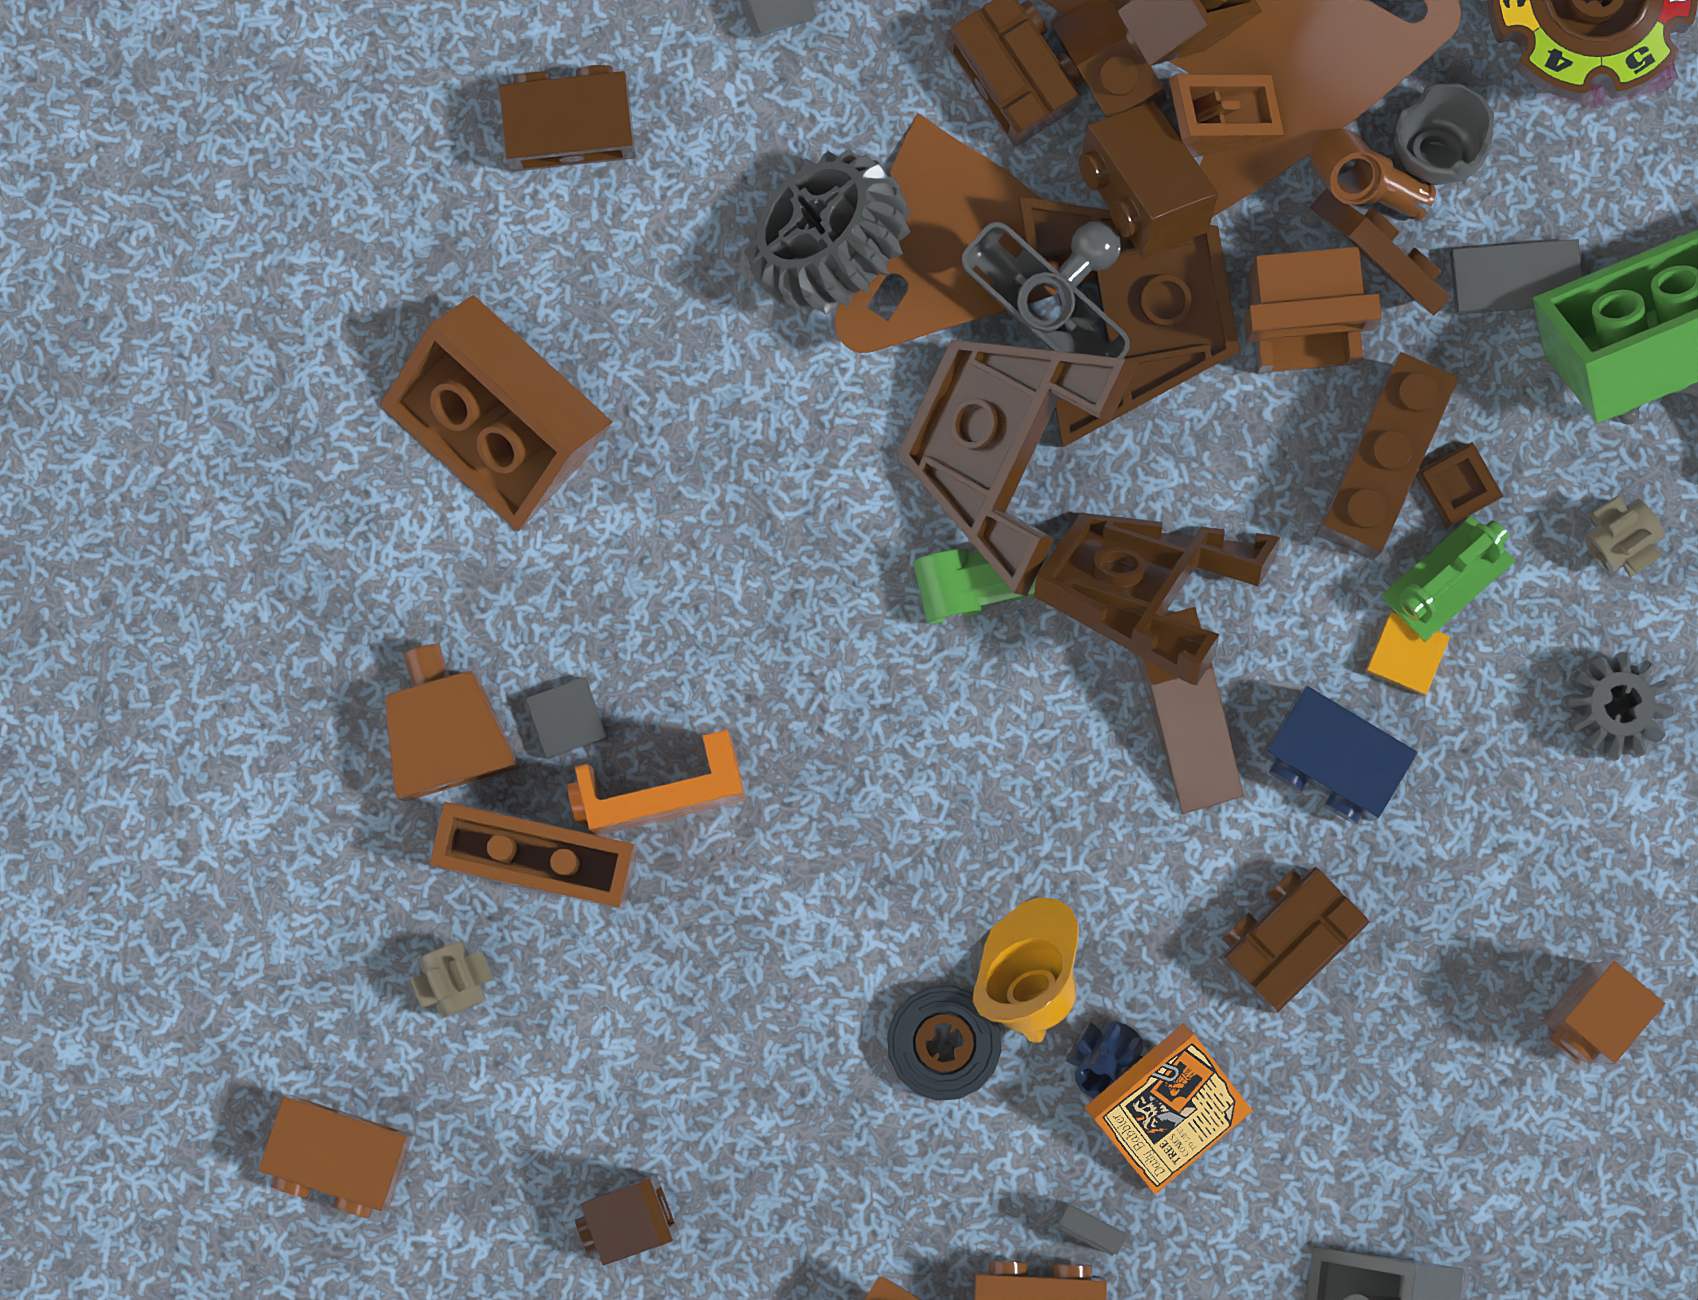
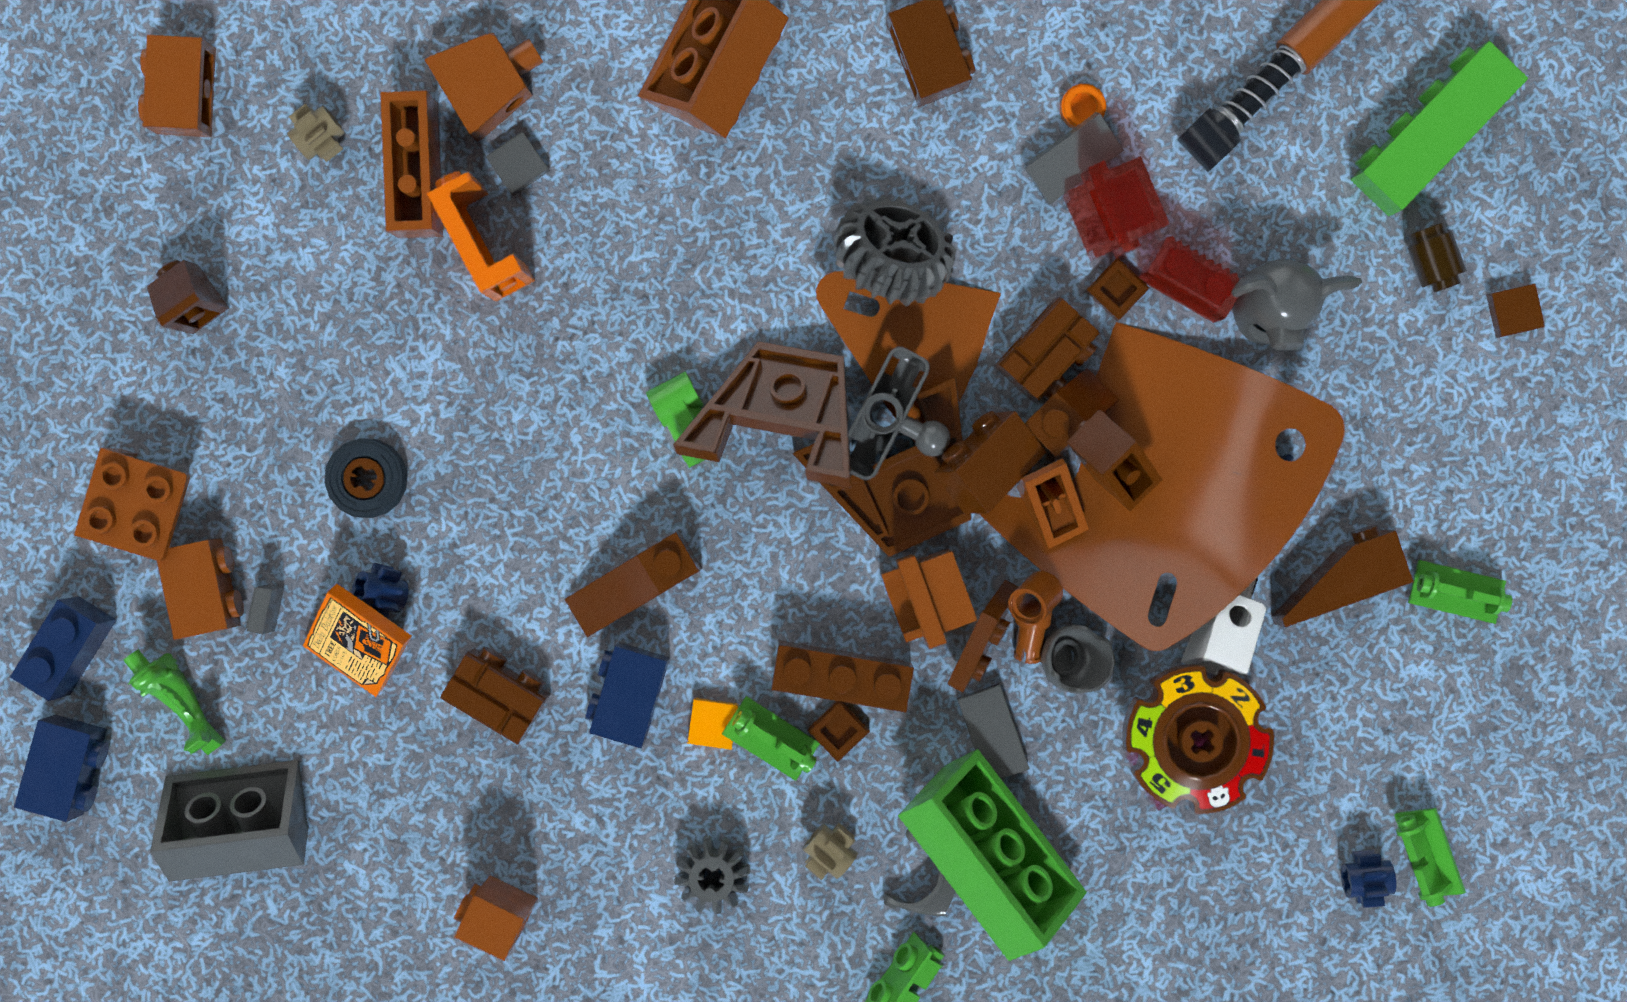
camera: 75 degrees right, 5 degrees up
(1029, 968) = (427, 521): light orange piece -> none
(1127, 573) = (707, 515): reddish brown wing -> none

